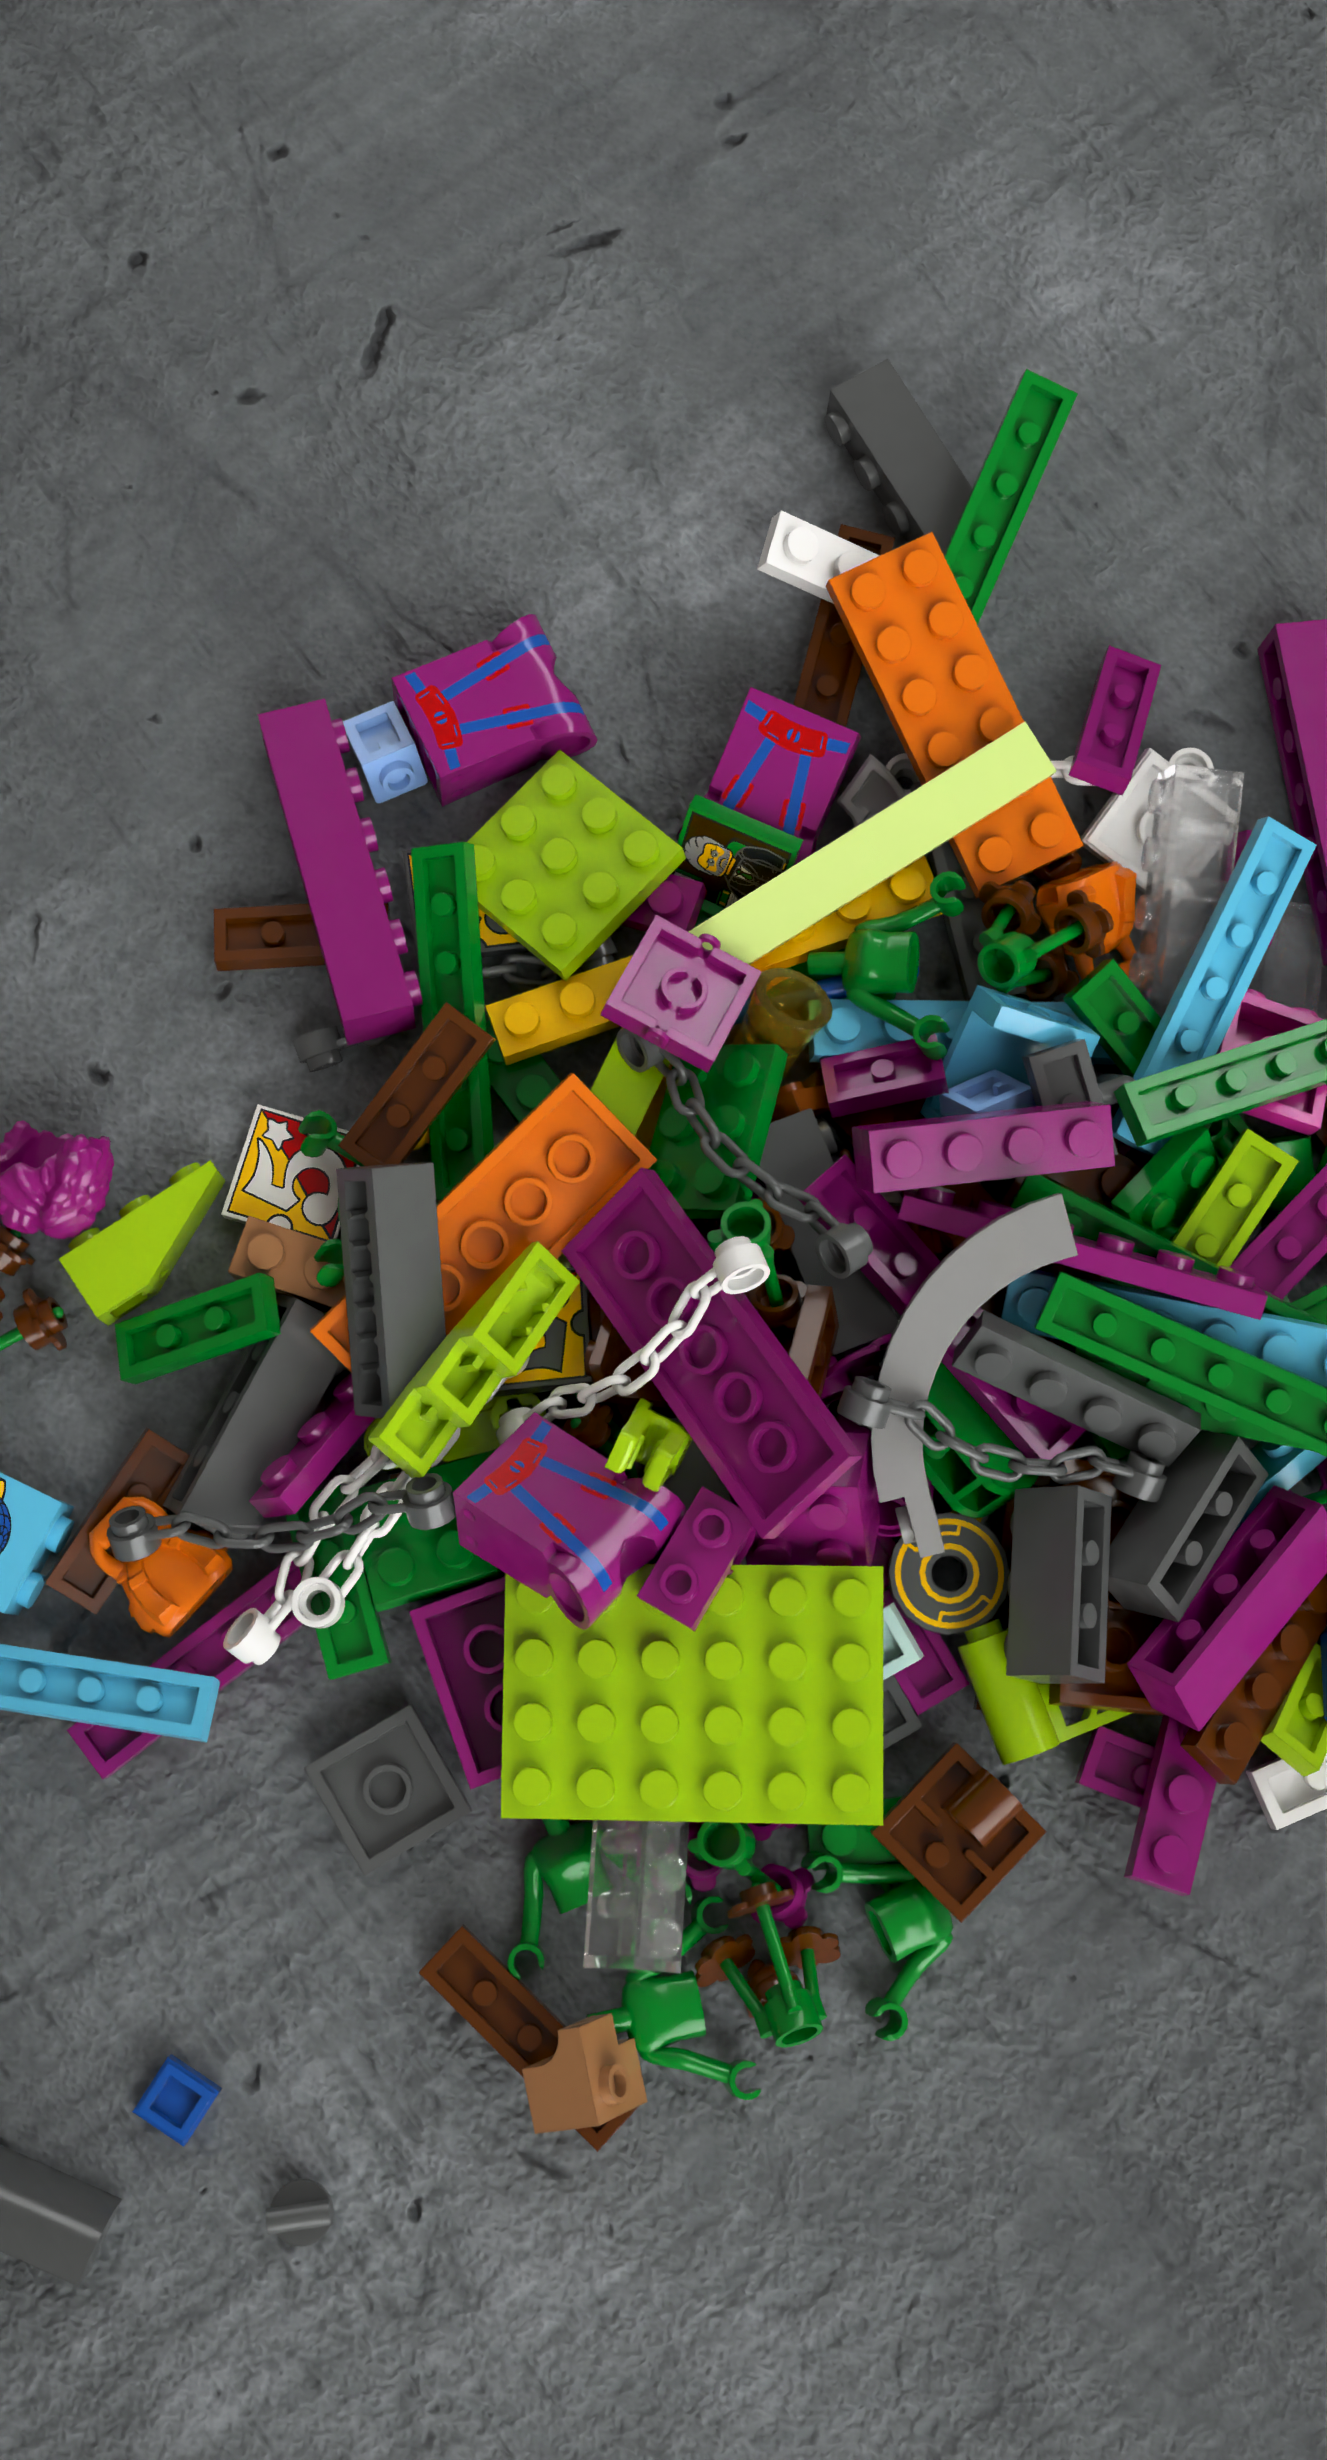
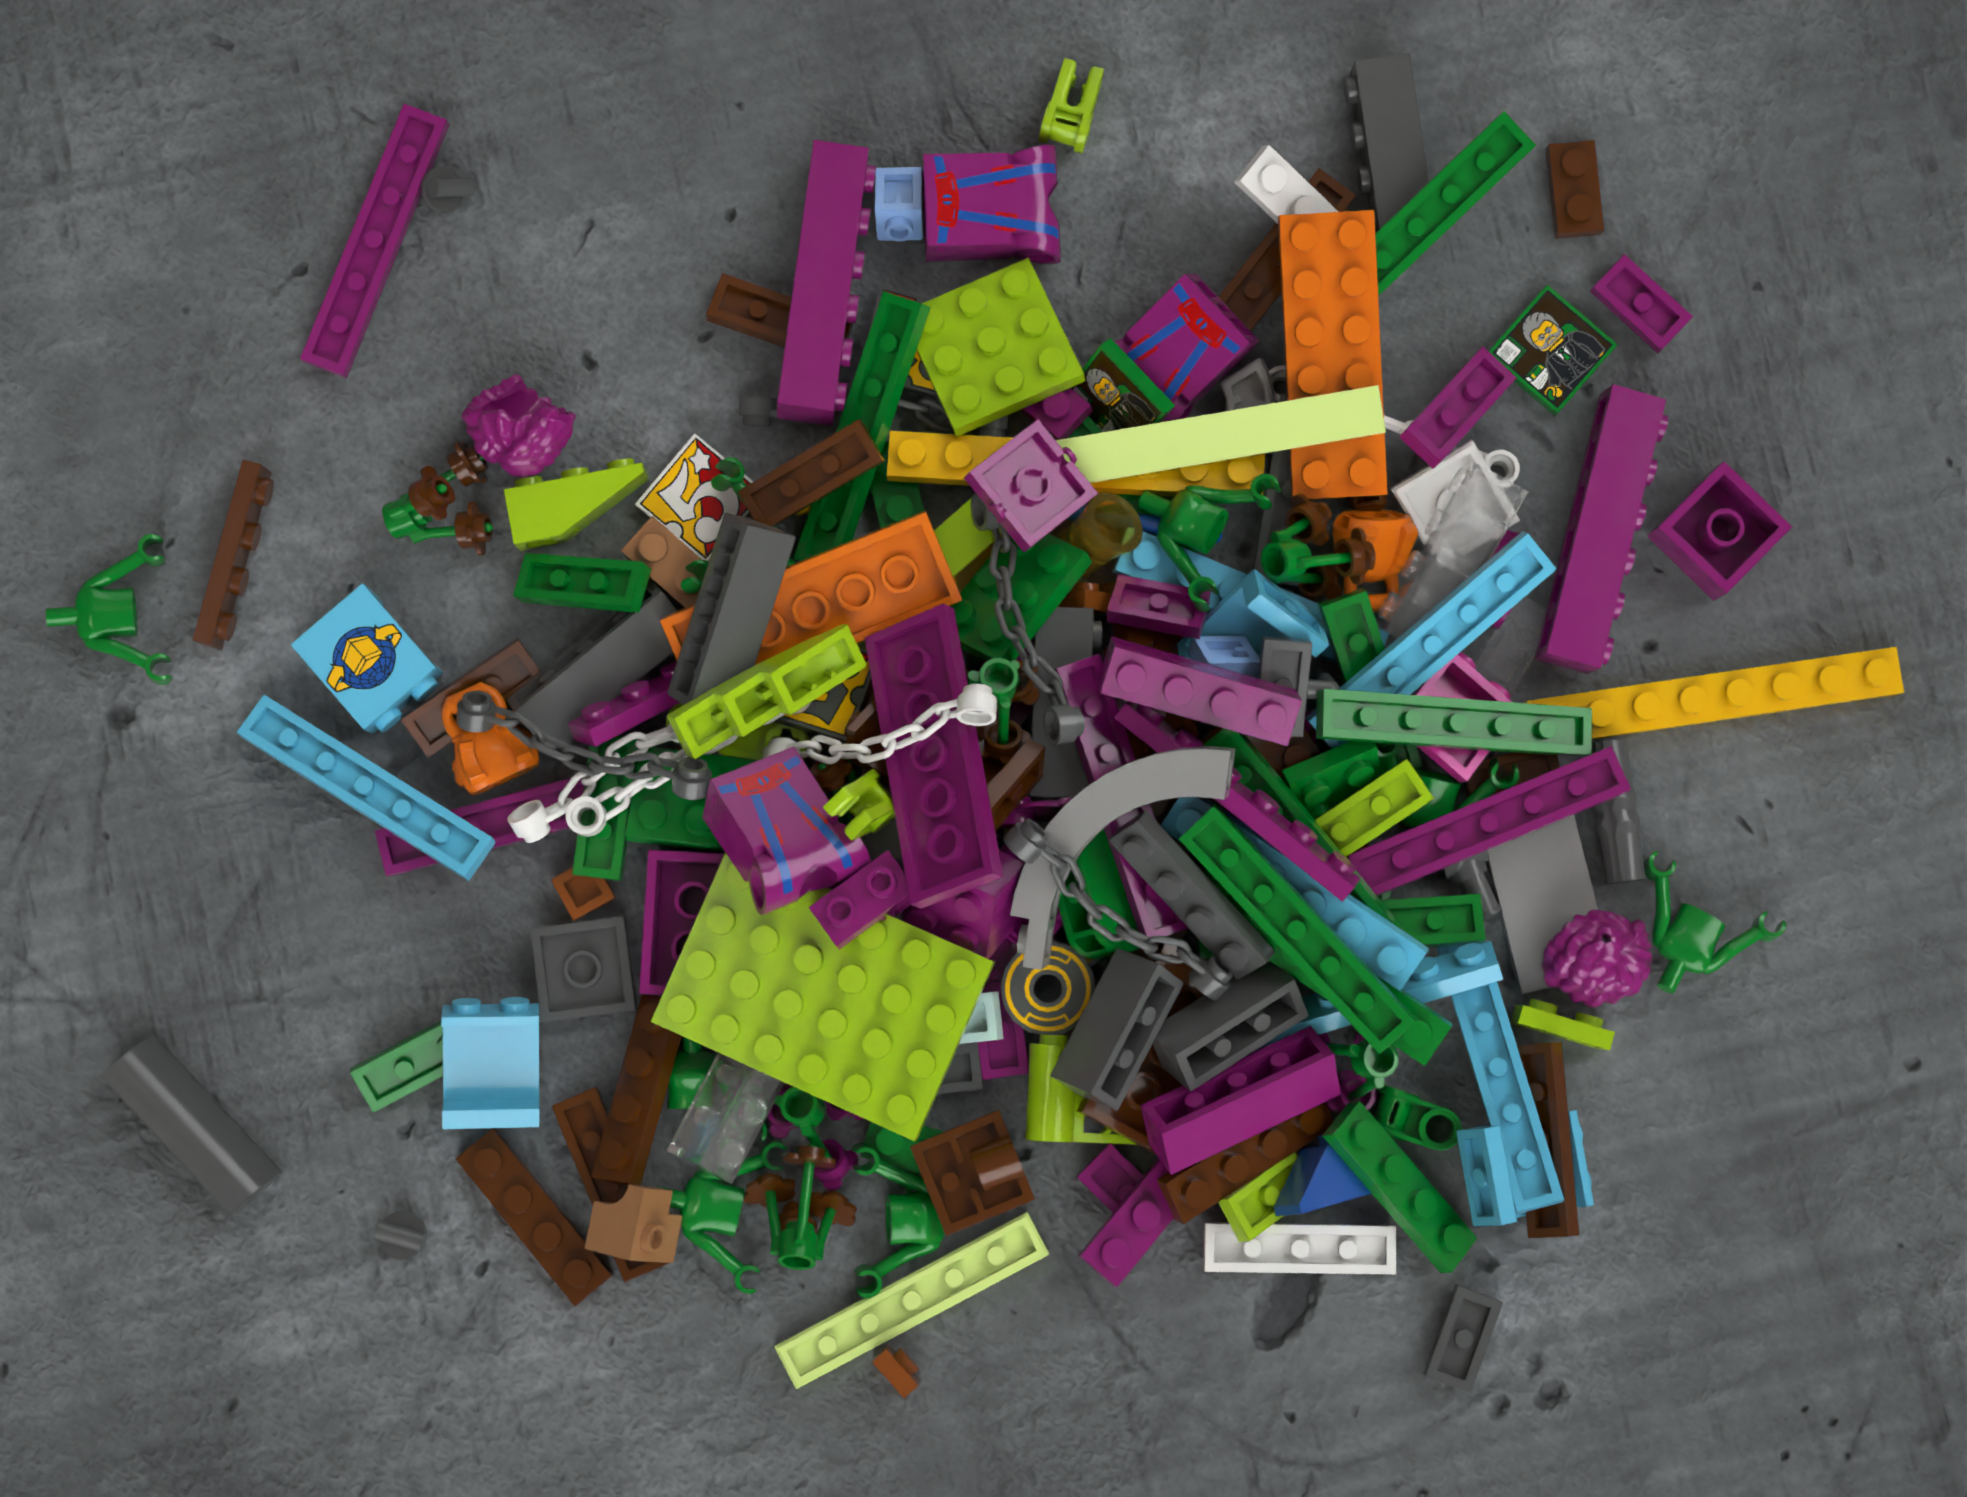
camera: 30 degrees right, 5 degrees up
(177, 2100) = (348, 1121): blue tile -> none
(239, 1980) = (401, 1068): none -> green plate
(324, 1955) = (490, 1064): none -> medium azure panel
(348, 1698) = (581, 893): none -> dark orange plate
(453, 2117) = (534, 1216): none -> reddish brown plate
(520, 1919) = (637, 1099): none -> reddish brown plate
(539, 585) = (1071, 123): none -> lime piece
(946, 2018) = (911, 1300): none -> yellowish green tile
(970, 2110) = (897, 1369): none -> dark orange plate
(1129, 440) = (1574, 189): none -> reddish brown plate
(1185, 620) = (1552, 350): none -> tile
(1259, 531) = (1641, 303): none -> magenta plate

